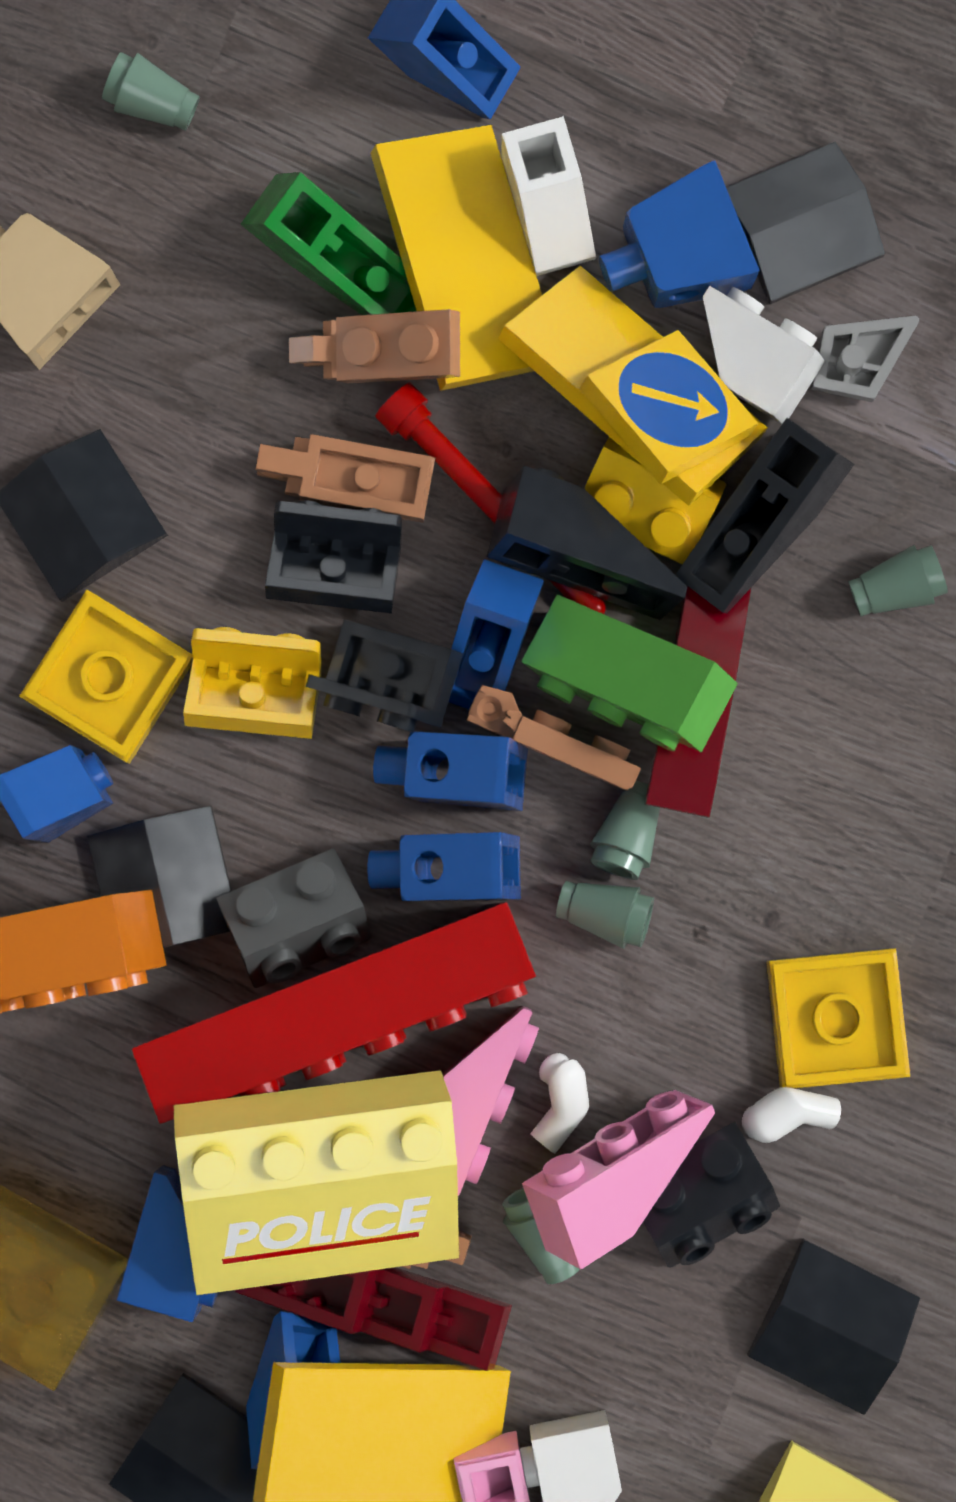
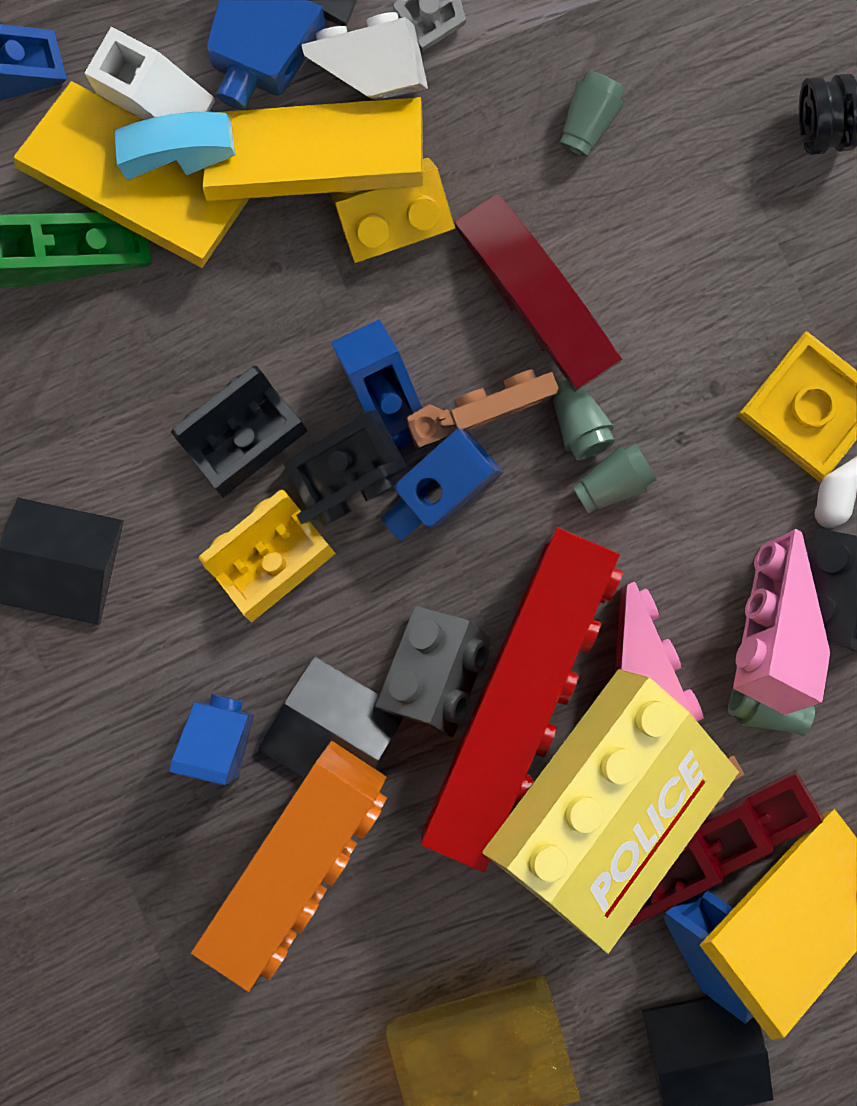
camera: 45 degrees left, 0 degrees up
(107, 676) = (173, 641): yellow tile -> none
(160, 1260) = (563, 953): blue slope -> none
(351, 475) = (198, 372): nougat hinge -> none
(384, 347) = (142, 274): nougat hinge -> none
(408, 415) = (199, 304): red piece -> none
(473, 867) = (514, 529): blue torso -> none
(534, 270) = (188, 137): none -> medium azure slope
(568, 1100) = (705, 614): white arm -> none
(574, 541) = (377, 276): black slope -> none
(628, 675) = (489, 322): bright green brick -> none
(668, 406) = (350, 138): tile -> none
(764, 515) = (471, 149): black slope -> none

